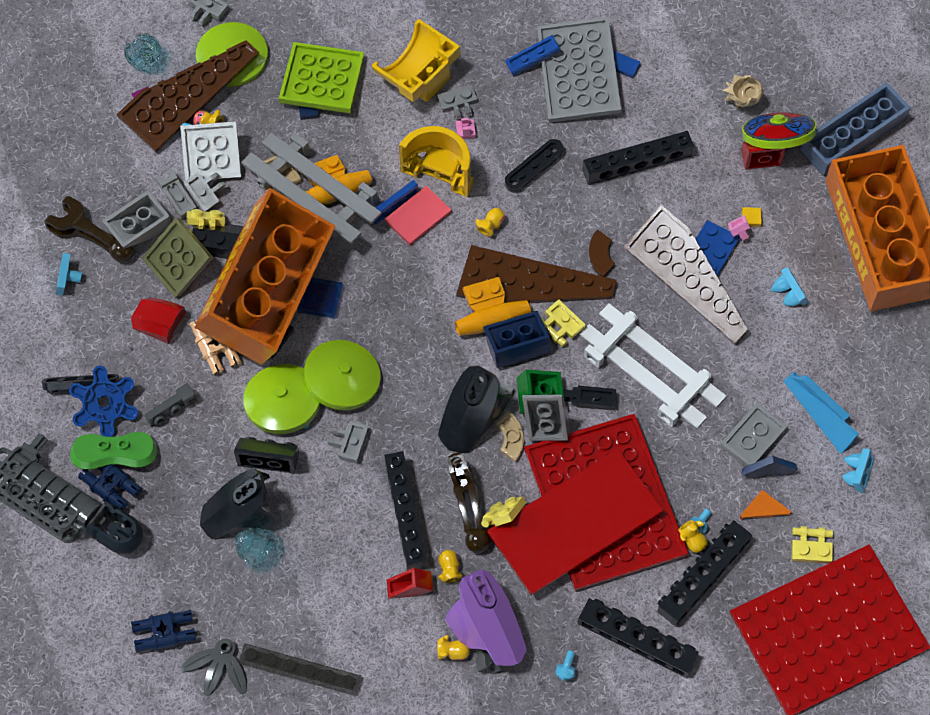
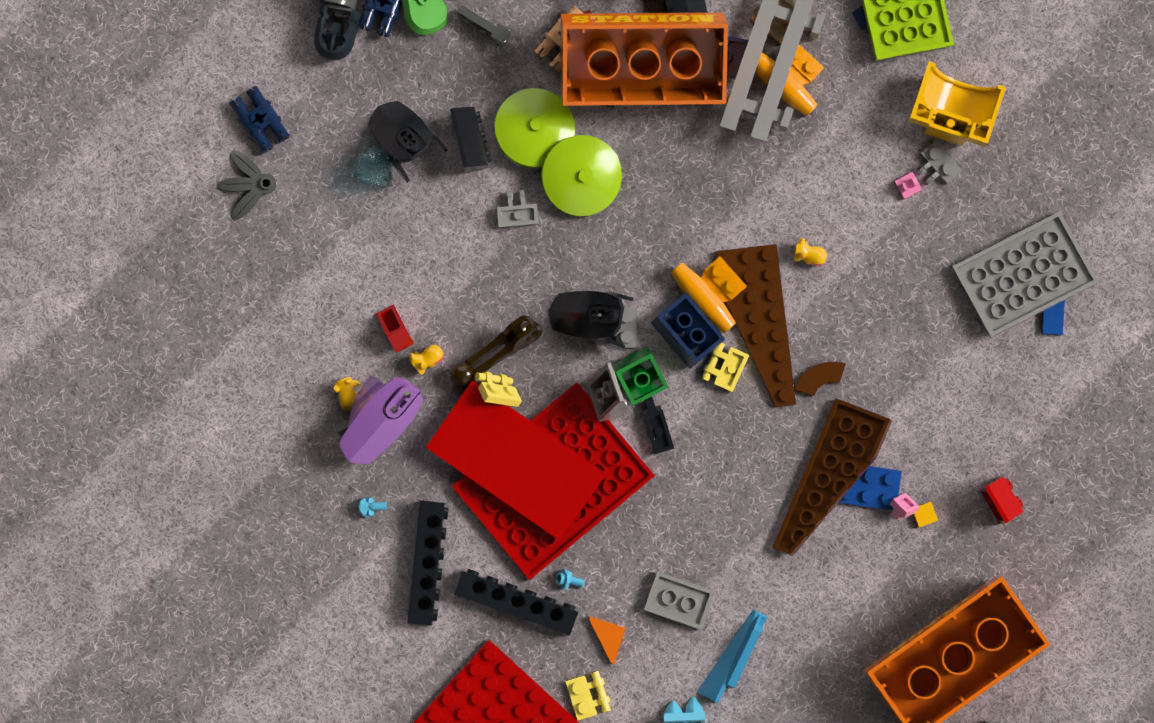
camera: 65 degrees right, 20 degrees up
(299, 669) = (274, 260): clear smoke plate -> none
(321, 298) = (658, 121): clear blue tile -> none
(396, 200) = (793, 148): blue tile -> none
(405, 511) = (465, 294): black brick -> none
(418, 215) = (789, 177): coral tile -> none
(443, 160) = (857, 176): yellow piece -> none
(512, 436) = (587, 366): tan tile -> none
(532, 55) = (1021, 220): blue tile -> none
(533, 165) = (893, 271): black plate -> none
(637, 157) = (943, 375): black brick -> none
(677, 403) = (686, 513): white fence -> none
(692, 536) = (548, 577): yellow animal -> none
(744, 91) = (1063, 456): tan hair -> none
(769, 465) = (647, 628): dark blue tile -> none
(779, 130) = (1029, 509): dish -> none
(786, 282) = (864, 578): medium azure tile -> none
(856, 127) = (1069, 586): sand blue brick -> none

